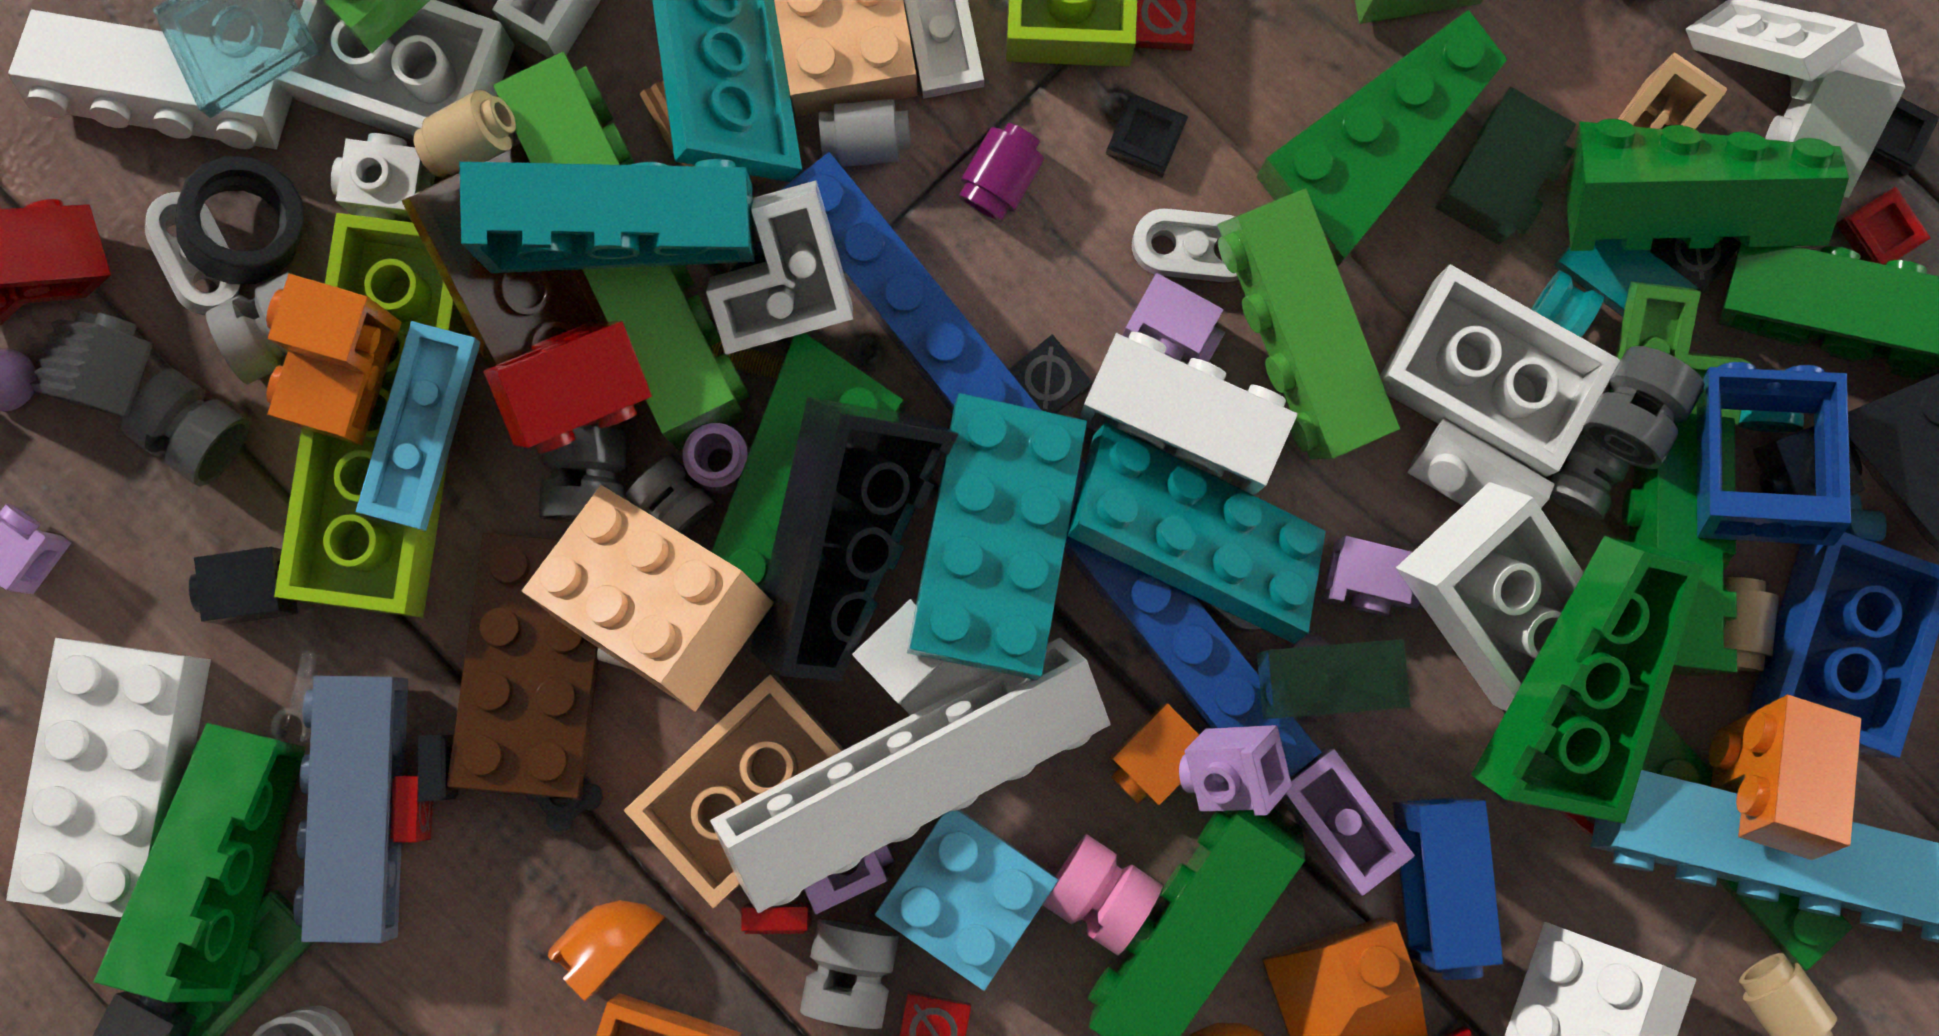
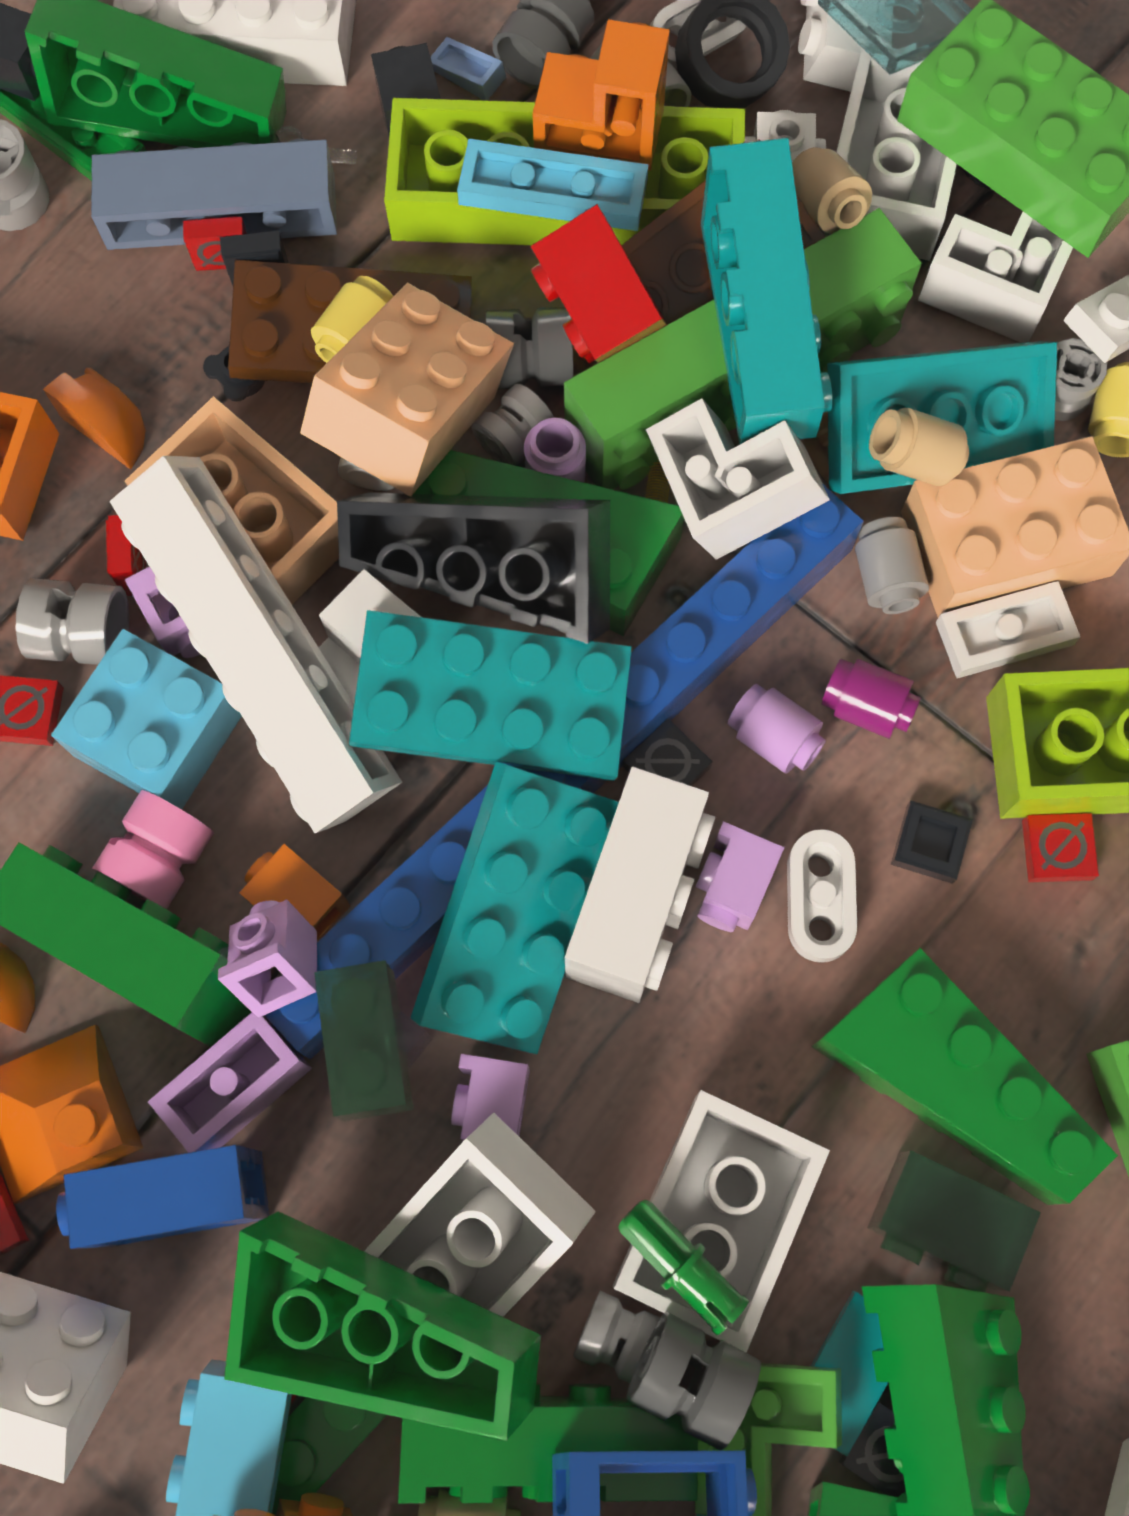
camera: 90 degrees right, 10 degrees down
(208, 519) = (468, 68): none -> light blue piece
(551, 655) = (348, 314): none -> light yellow brick
(769, 83) = (919, 446): none -> tan brick
(1025, 266) = (777, 728): none -> lavender brick
(1307, 326) = (746, 1007): bright green brick -> none
(1463, 464) = (613, 1188): white plate -> none
(1549, 405) = (682, 1266): none -> green axle
(1568, 304) = (803, 1299): teal wheel -> none
(1674, 96) = (1057, 1406): light nougat slope -> none

